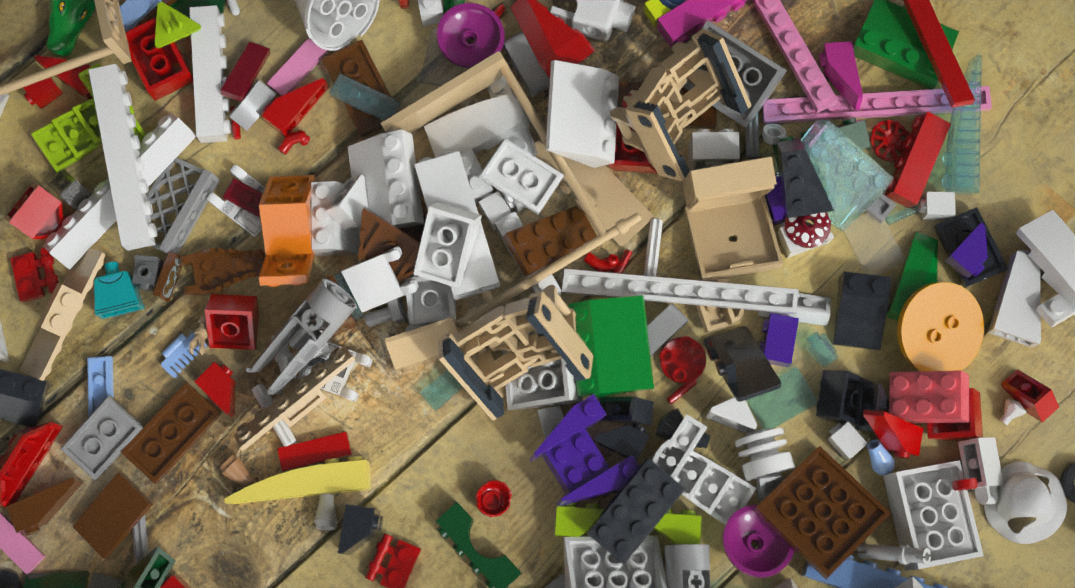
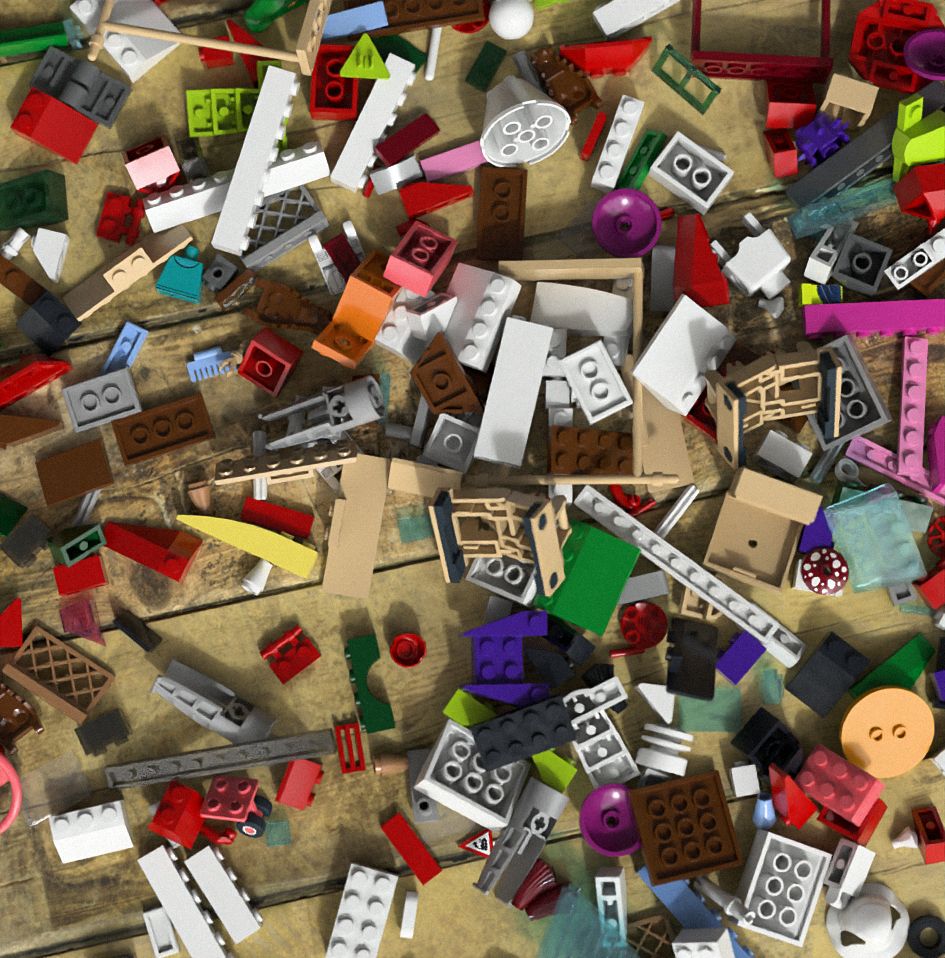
camera: 25 degrees right, 5 degrees up
(219, 386) = (226, 413): red slope -> none
(226, 539) = (156, 548): none -> red wedge
(312, 160) = (420, 258): none -> coral brick
(358, 527) = (278, 607): black slope -> none
(364, 98) = (498, 227): clear light blue plate -> none
(375, 282) = (413, 401): white flag -> none
(387, 418) = (356, 526): none -> tan bracket
(446, 244) = (494, 406): white slope -> none
(632, 36) = (774, 306): none -> white rock
(800, 183) = (839, 531): black wedge -> none
(873, 243) = (875, 620): clear piece -> none
(964, 484) = (822, 877): red tile -> none

